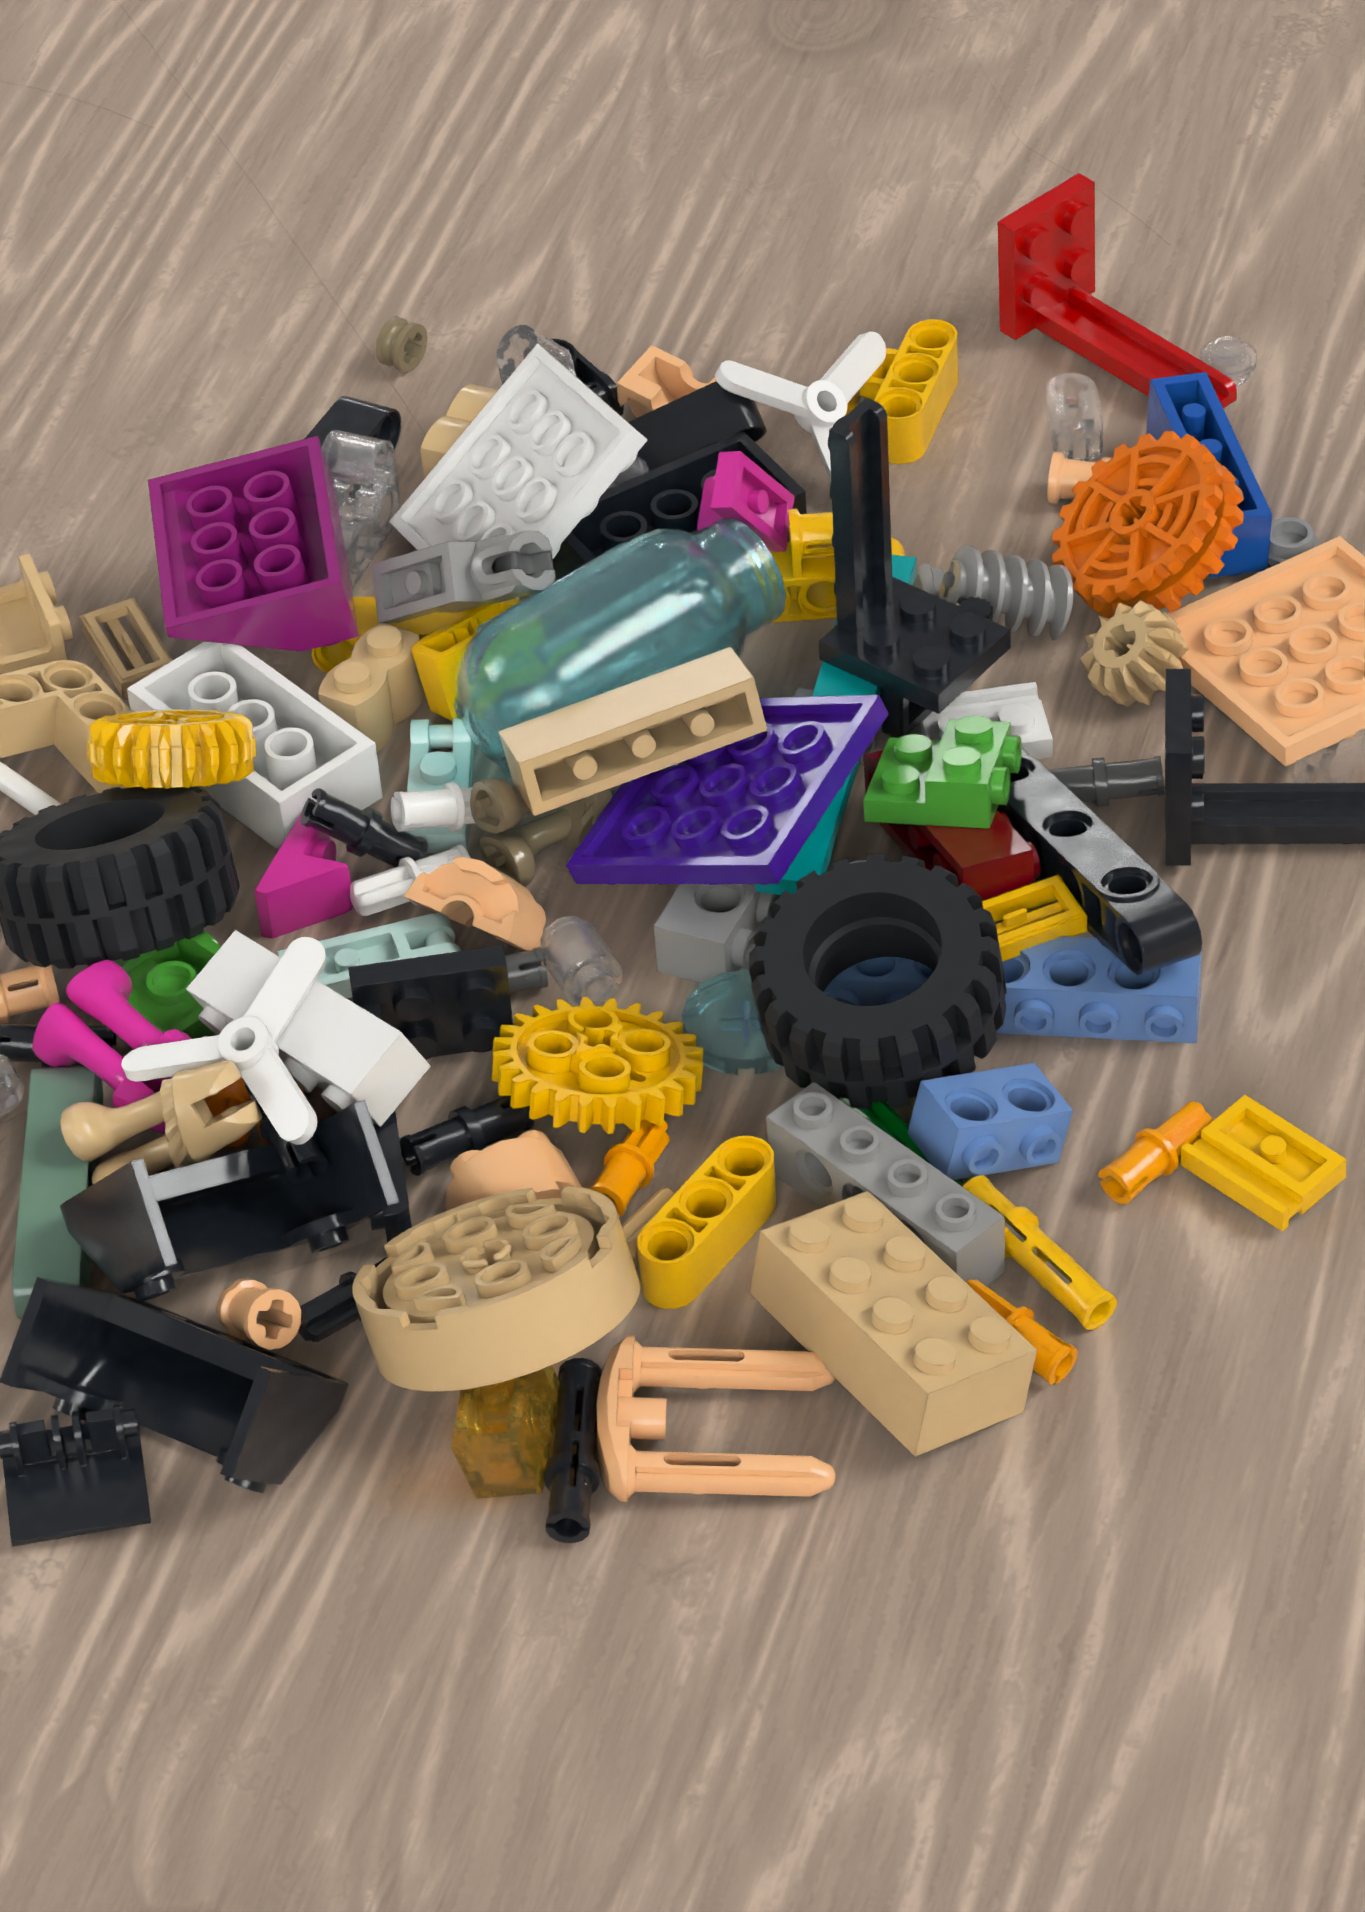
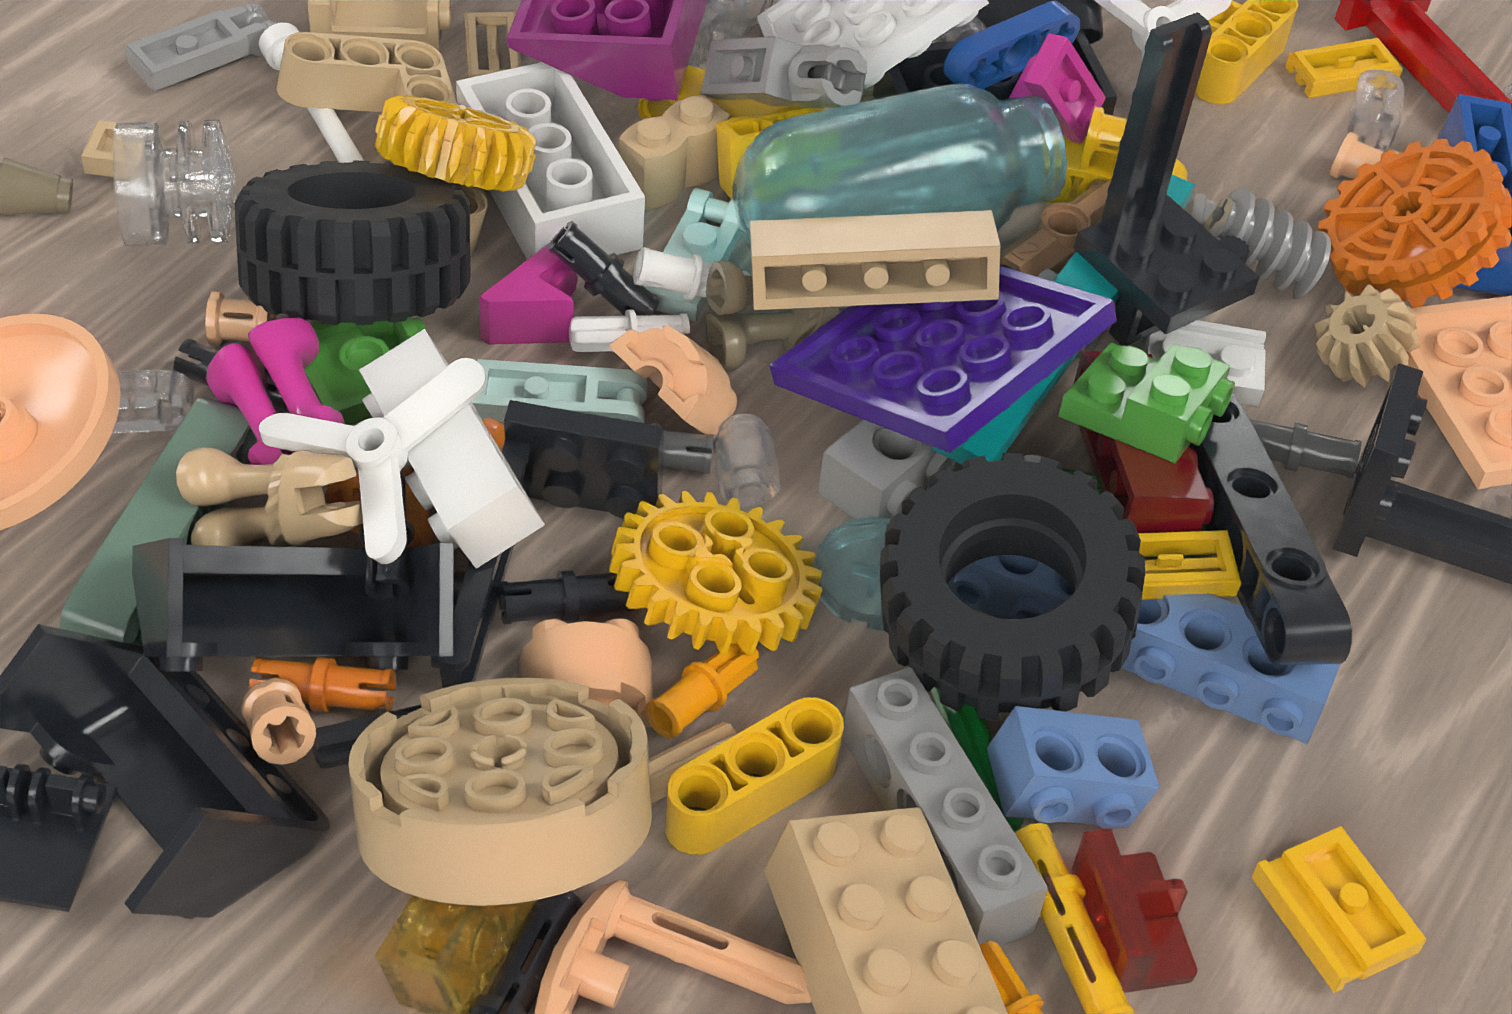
camera: 10 degrees right, 5 degrees up
(287, 1272) = (329, 685): none -> orange pin
(678, 474) = (989, 54): none -> blue beam
(795, 650) = (1054, 239): none -> medium nougat piece
(1028, 378) = (1339, 66): none -> yellow tile
(1087, 1222) = (1134, 913): none -> clear red panel
(1153, 1153) = (1232, 854): light orange axle -> none

